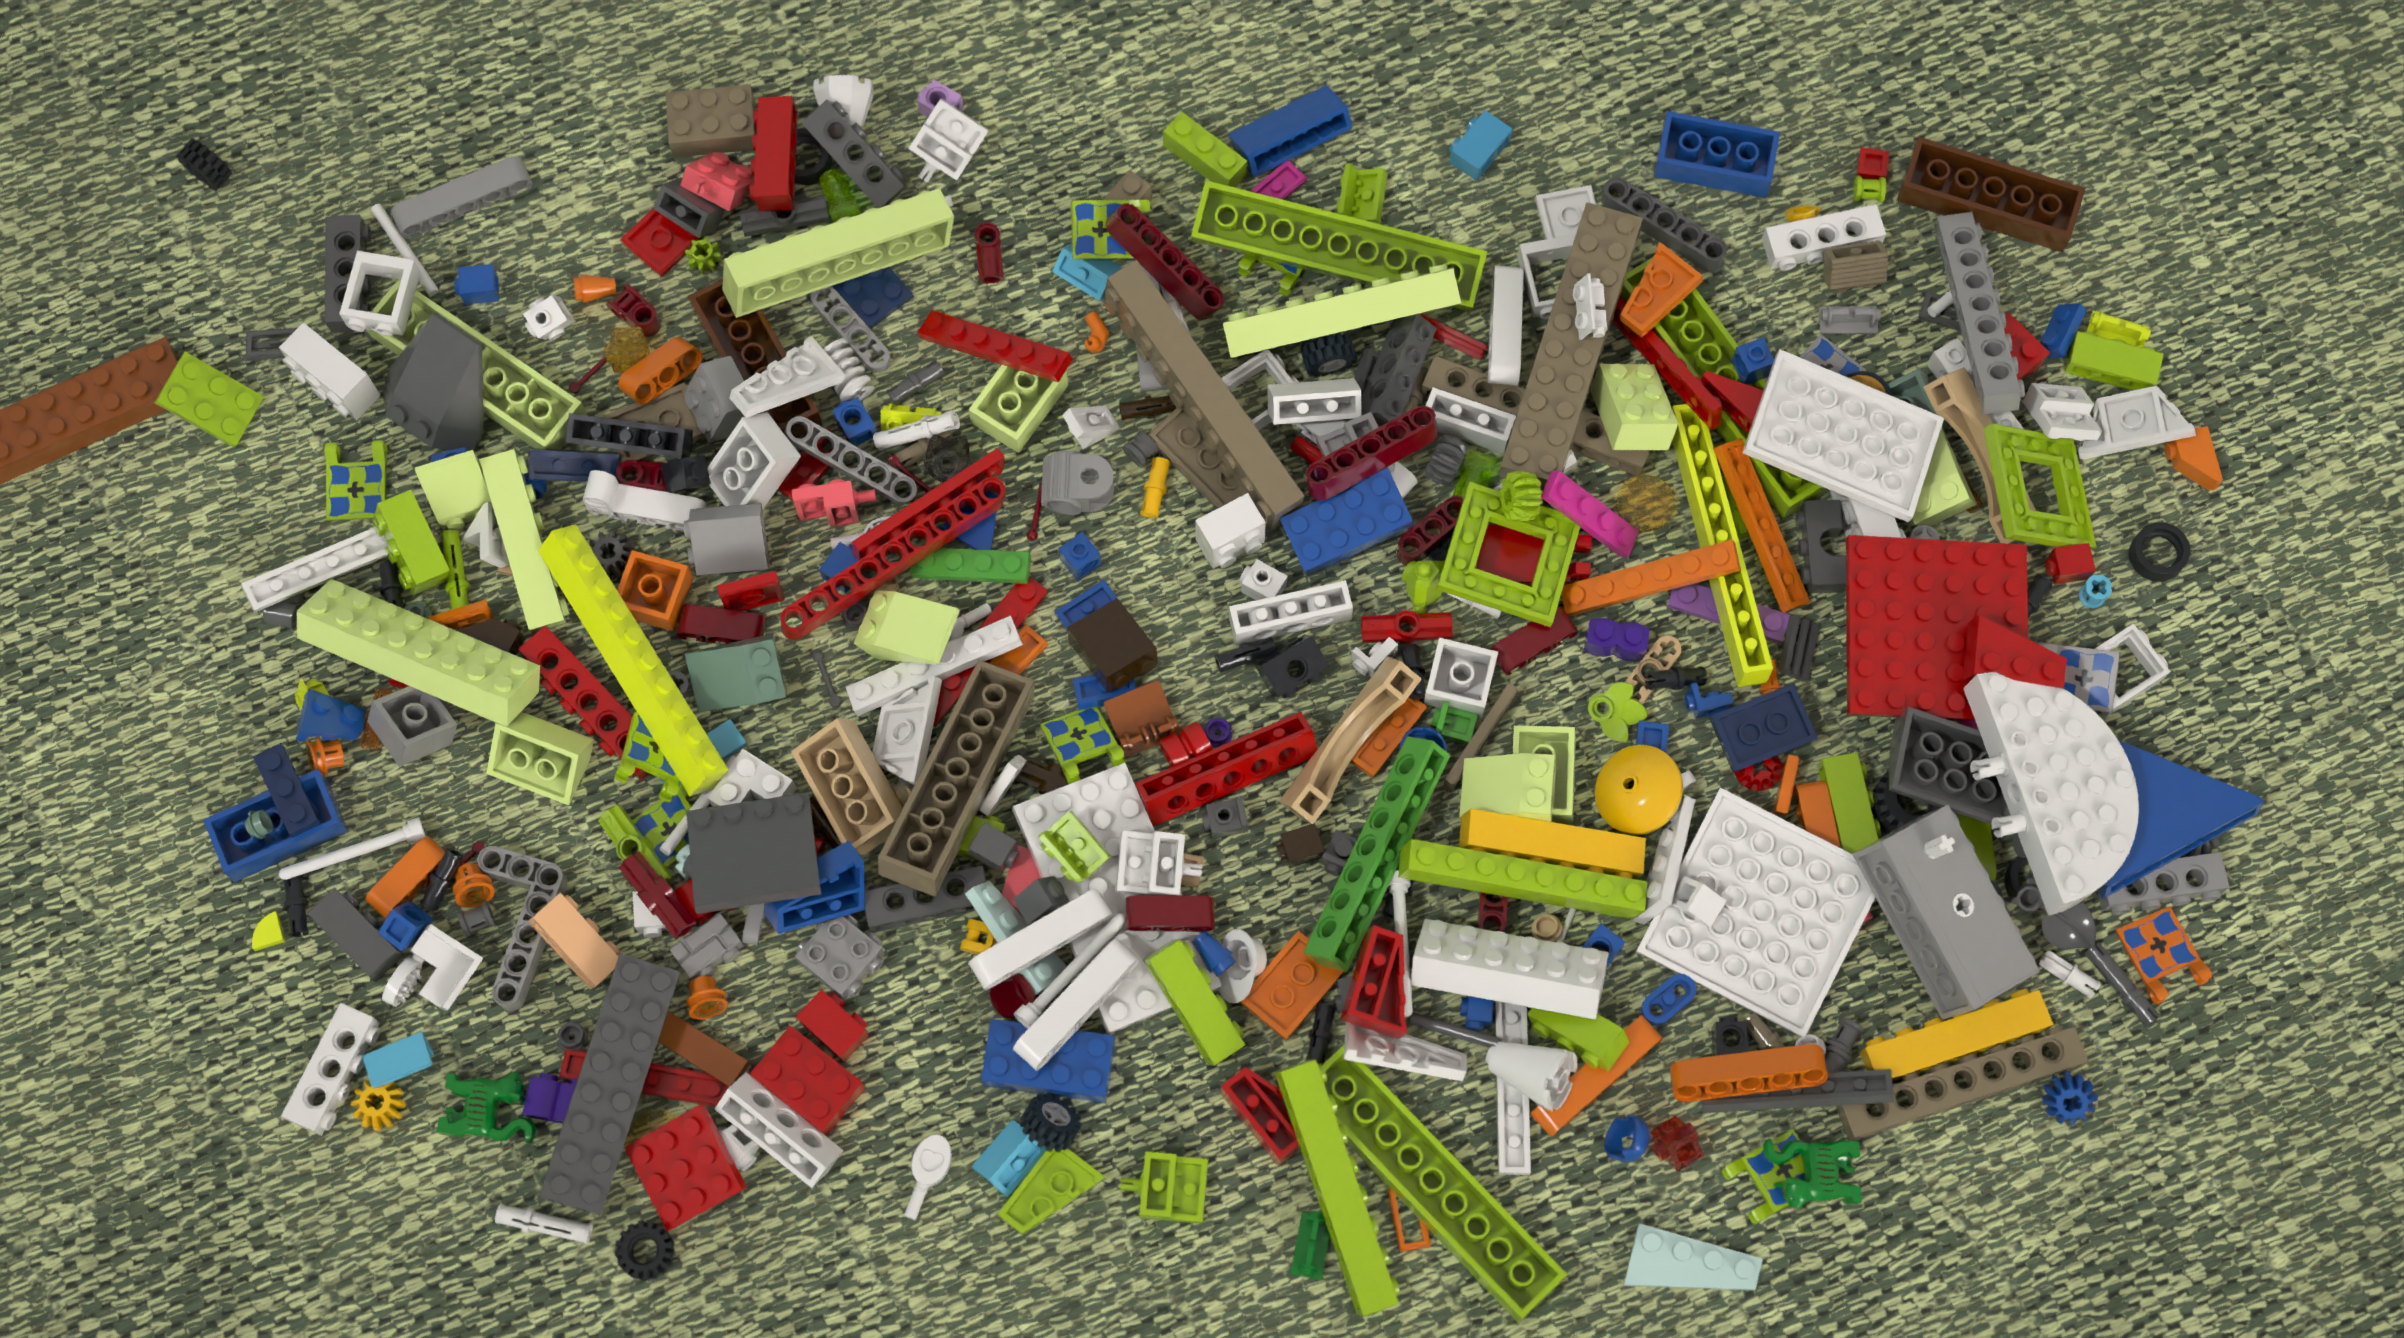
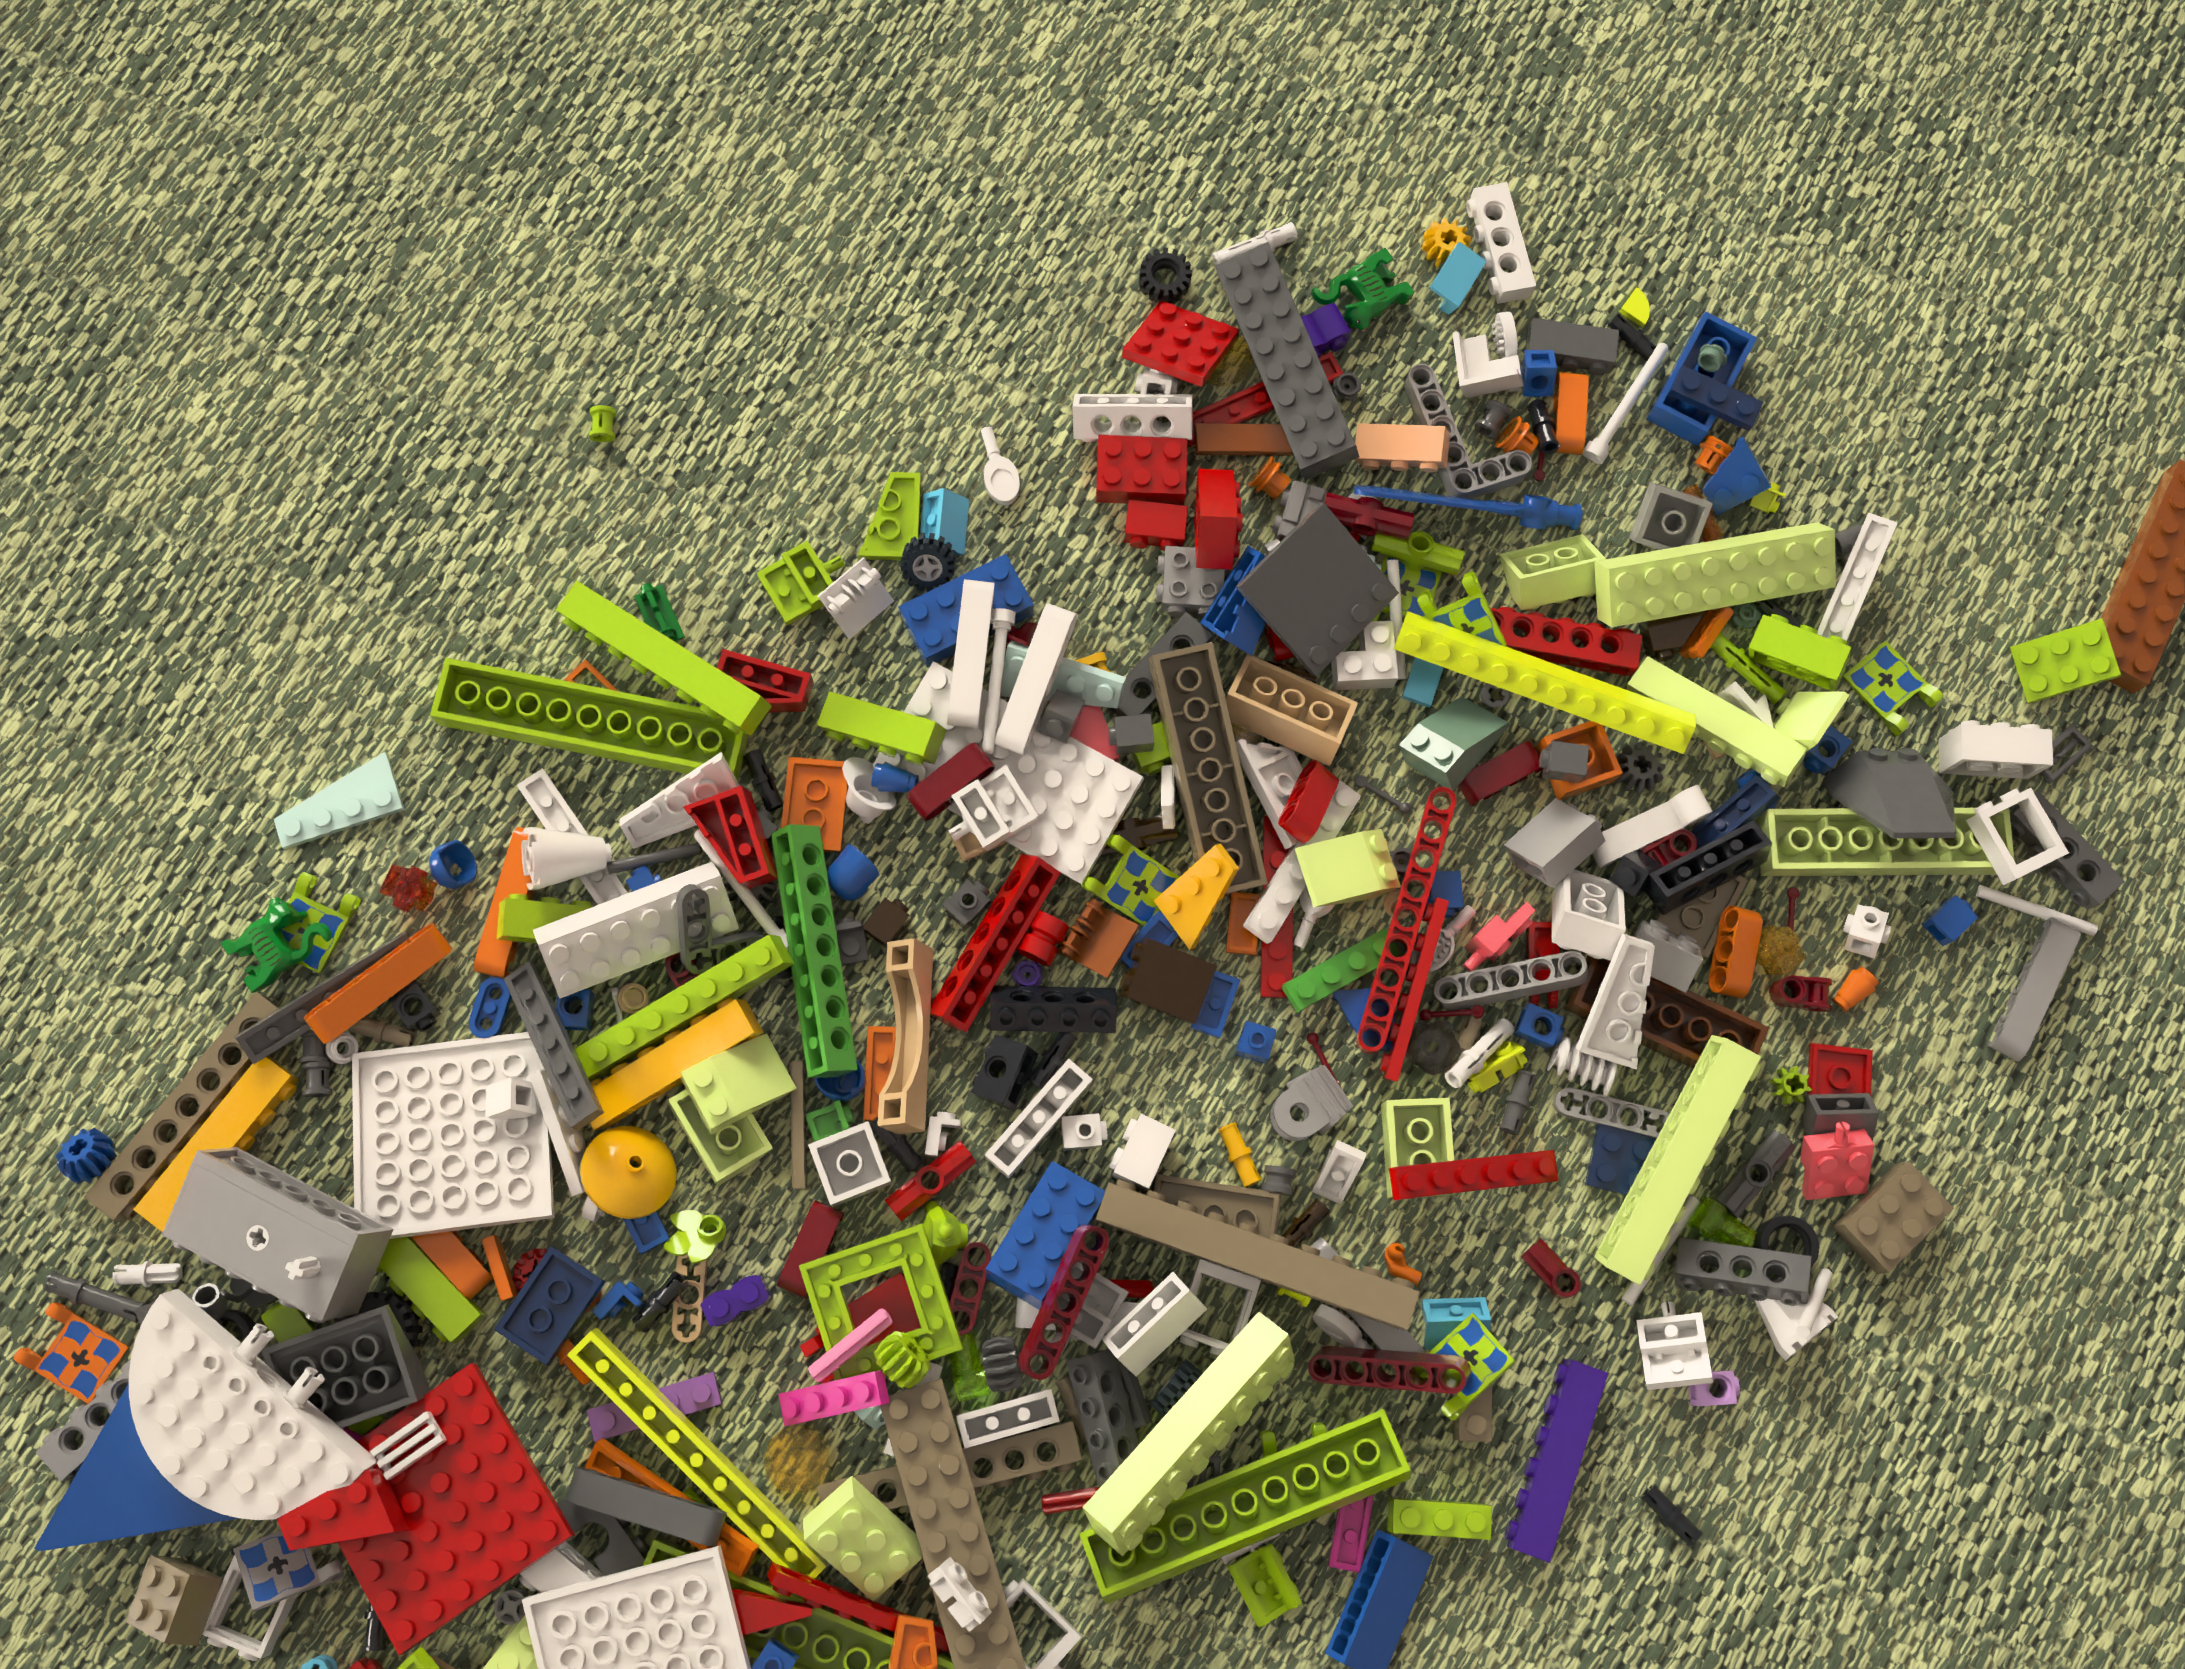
camera: 135 degrees right, 5 degrees up
(516, 813) = (1534, 512): none -> blue piece
(672, 583) = (1564, 761): none -> dark grey brick
(751, 592) = (1498, 810): red tile -> none
(775, 153) = (1811, 1218): red brick -> none
(784, 978) = (1217, 519): none -> red brick
(830, 92) = (1814, 1303): none -> white bar
(894, 701) = (1308, 801): none -> red beam
(1038, 49) = (1671, 1515): none -> black pin
(1040, 688) = (1196, 893): none -> yellow wing
(1074, 847) = (1065, 771): lime bracket -> none
(1089, 134) = (1556, 1460): none -> dark purple brick
(1134, 1136) = (856, 598): none -> white hinge
(1217, 685) = (1053, 1009): none -> black brick
(1302, 902) = (851, 874): none -> blue hair
(1466, 911) = (703, 941): none -> dark grey beam
(1505, 325) = (1038, 1541): white beam -> none
(1552, 538) = (850, 1345): none -> bright pink axle
(1637, 917) = (553, 1046): none -> dark grey plate
(1651, 578) = (736, 1376): orange plate -> none
(1780, 529) = (646, 1506): none -> dark grey beam
(1802, 650) = (563, 1415): dark grey tile -> none
(1959, 681) = (384, 1461): none -> white tile
(2177, 706) = (173, 1600): none -> dark tan brick

